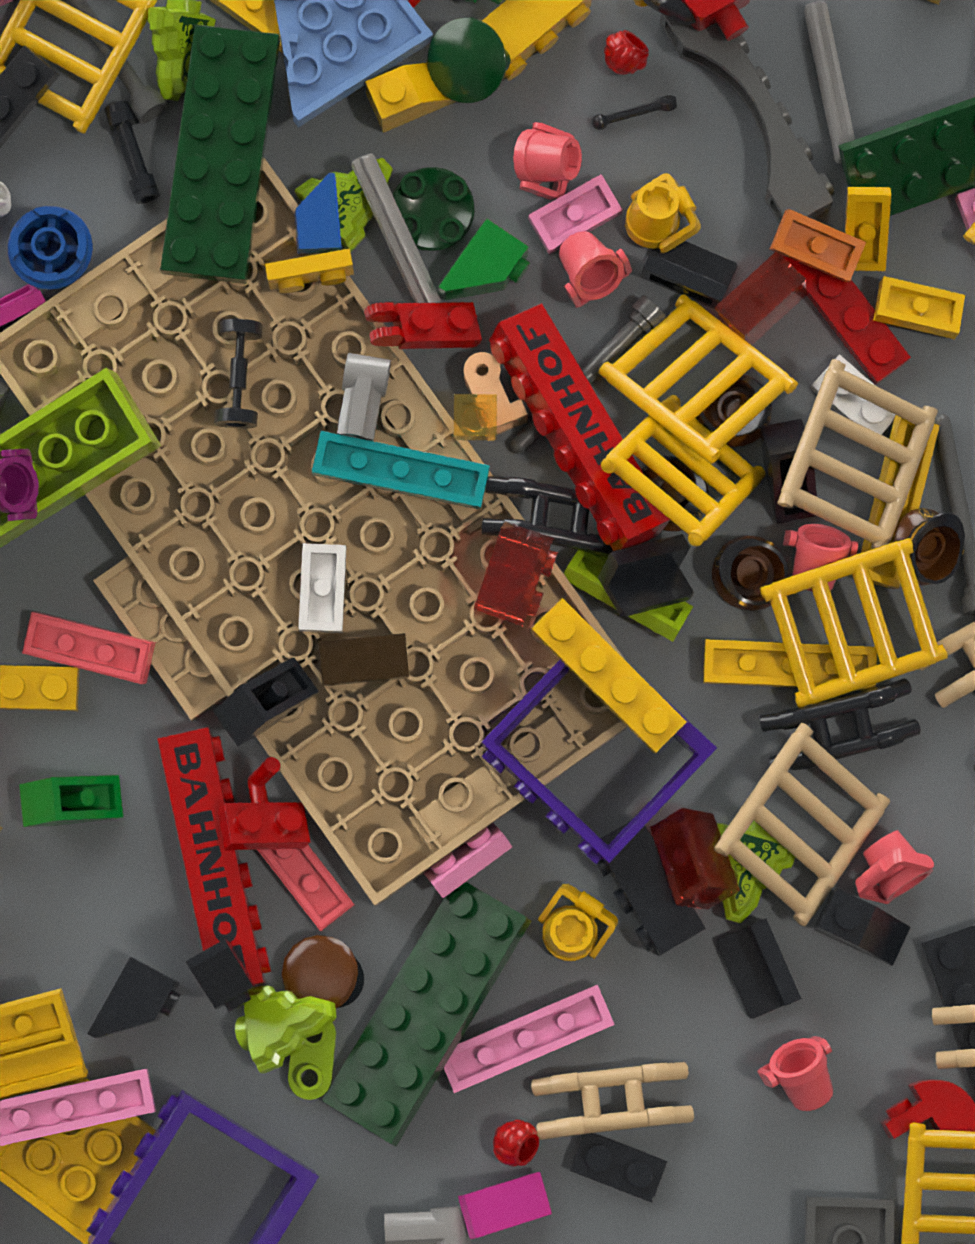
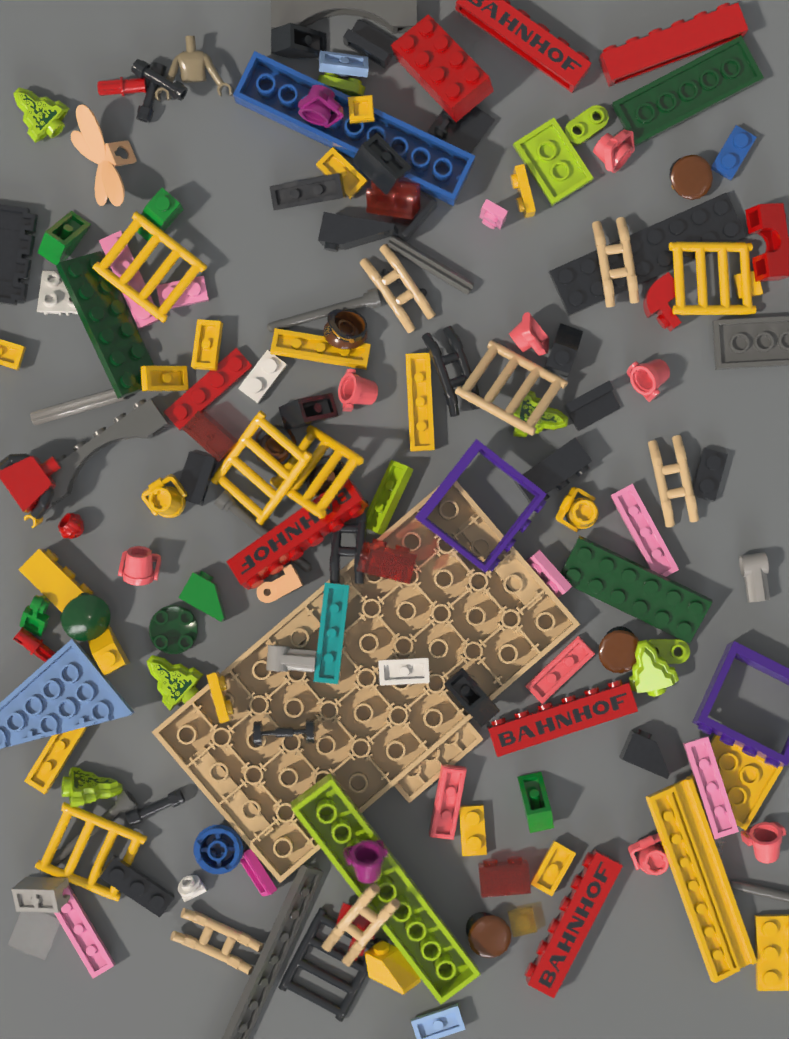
camera: 90 degrees left, 5 degrees up
(220, 154) = (154, 755): dark green plate -> none
(222, 976) = (630, 706): black slope -> none
(263, 822) = (539, 692): red plate -> none
(318, 219) = (188, 695): blue tile -> none
(364, 659) = (442, 643): dark brown tile -> none
(394, 229) = (191, 649): light grey axle -> none
(425, 325) = (243, 627): red hinge -> none
(475, 417) = (296, 593): clear yellow plate -> none
(504, 1205) = (738, 535): dark pink tile -> none
(515, 1143) = (702, 533): red piece -> none
(575, 212) = (169, 546): bright pink plate -> none
(591, 268) = (201, 534): coral piece -> none
(608, 676) = (441, 503): yellow plate -> none
(646, 576) = (378, 487): black panel -> none
(666, 103) = (98, 499): black hinge -> none
(692, 866) = (538, 449): clear red brick -> none
(744, 568) = (368, 429): reddish brown piece -> none
(807, 455) = (295, 345): tan bar -> none
(817, 245) = (177, 405): orange plate -> none
(889, 665) = (373, 389): yellow bar -> none

